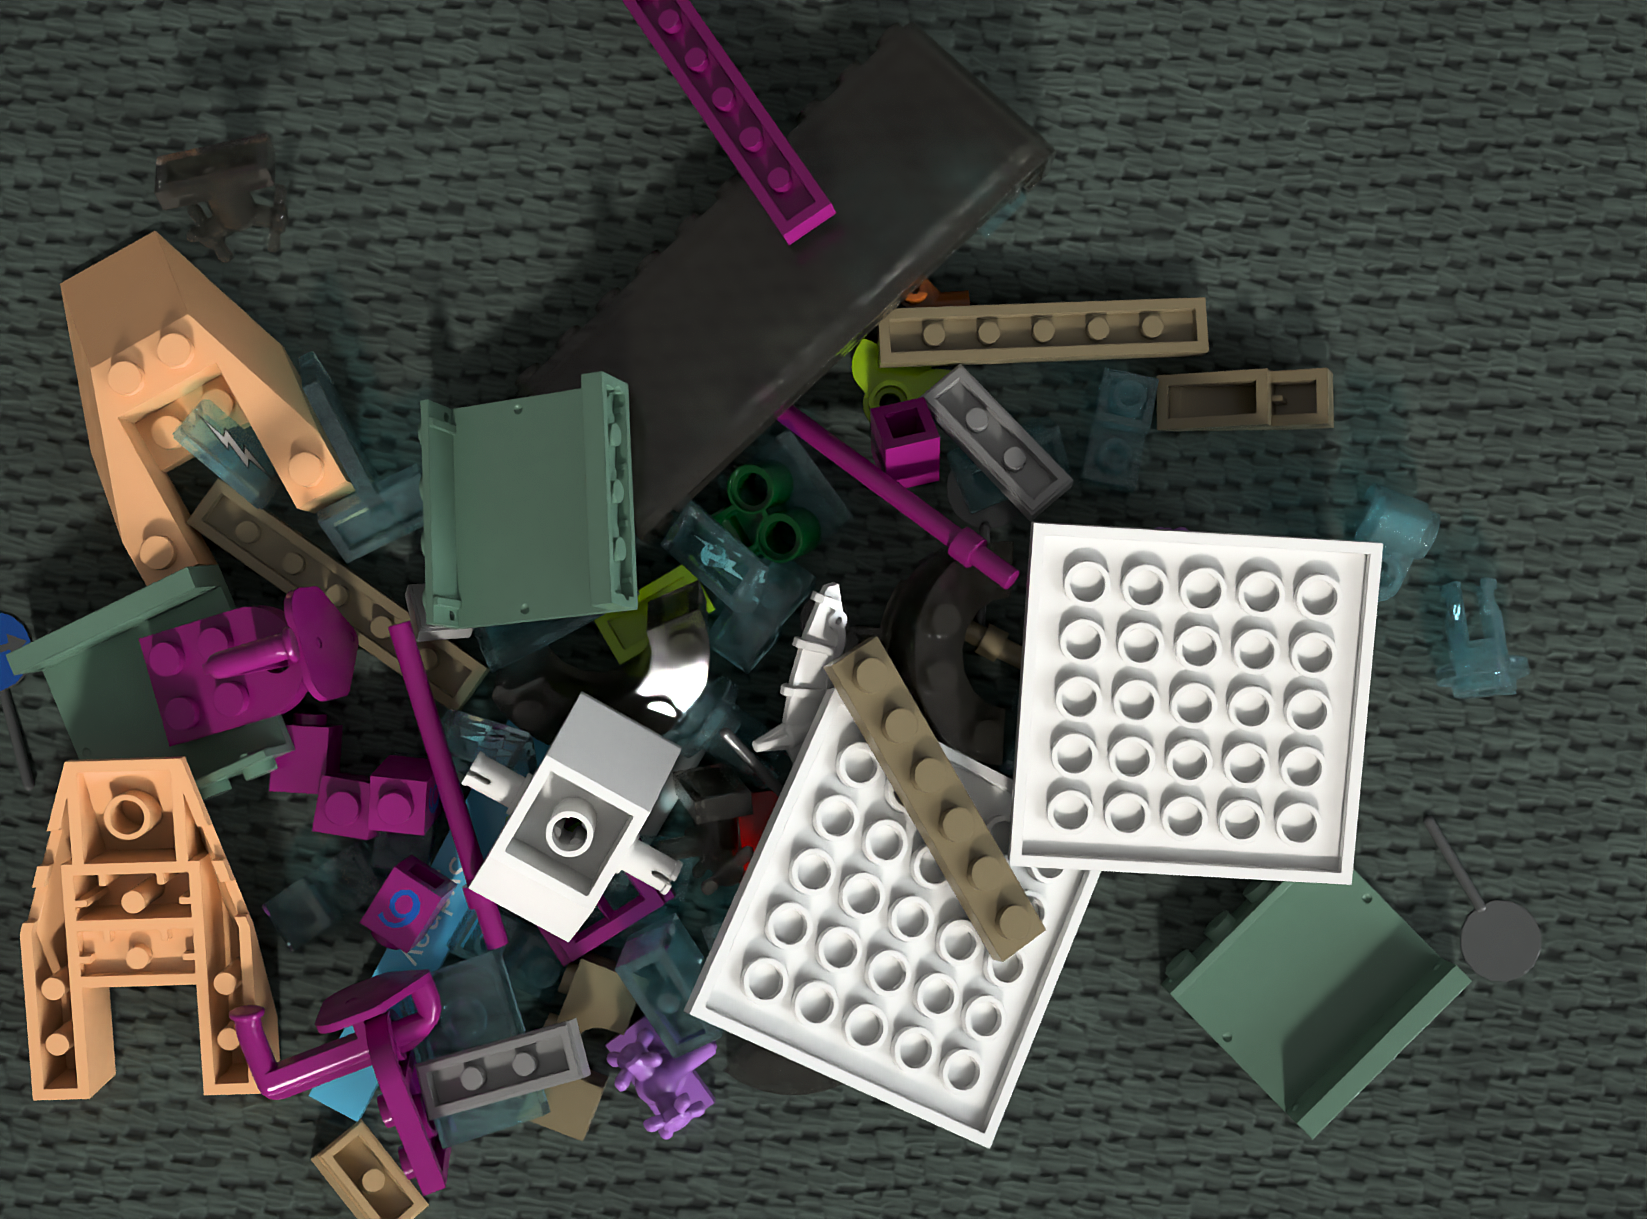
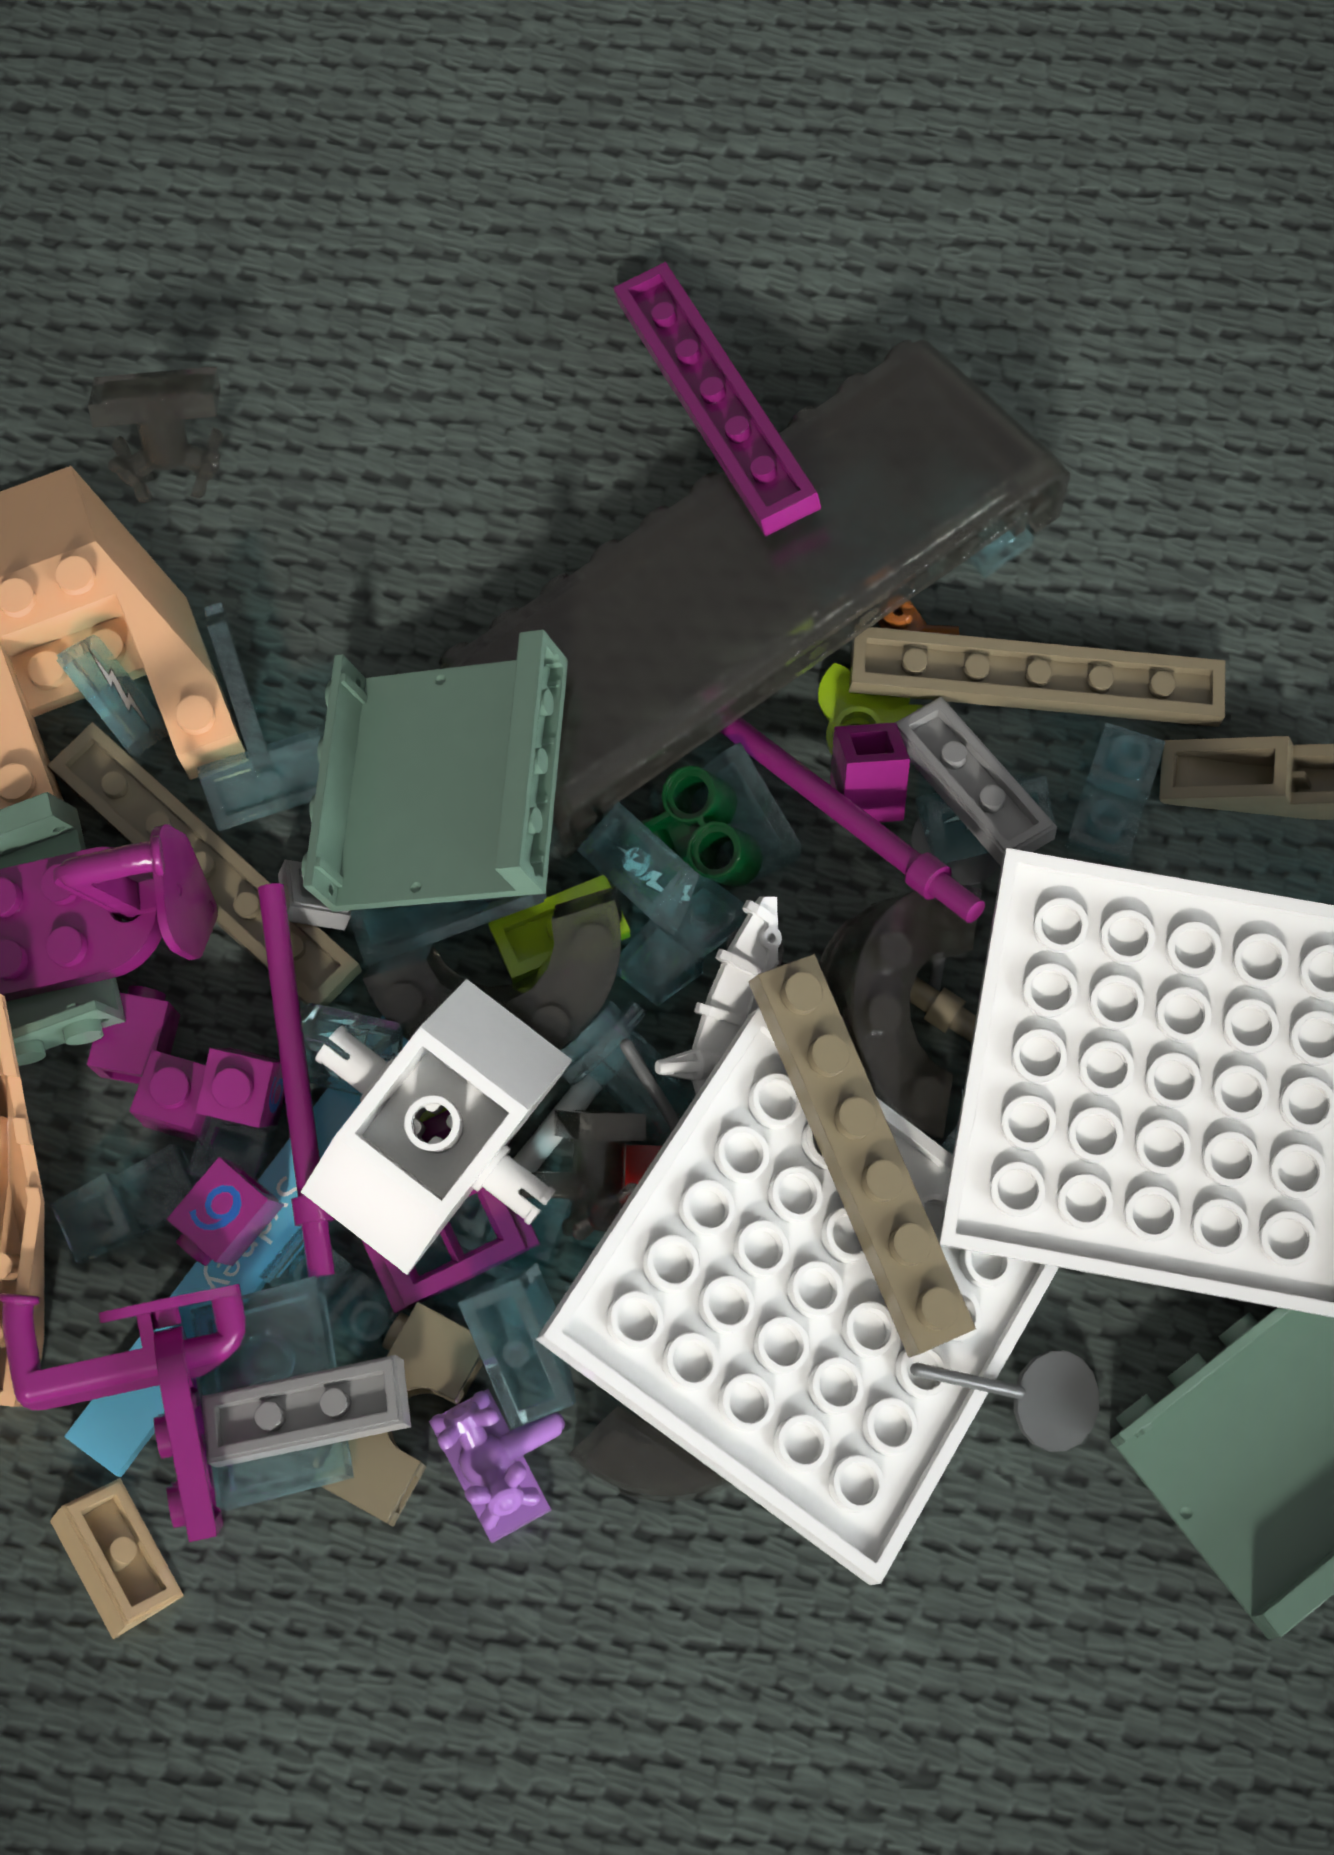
camera: 10 degrees right, 15 degrees down
(1110, 968) = (1052, 1398): none -> dark grey piece

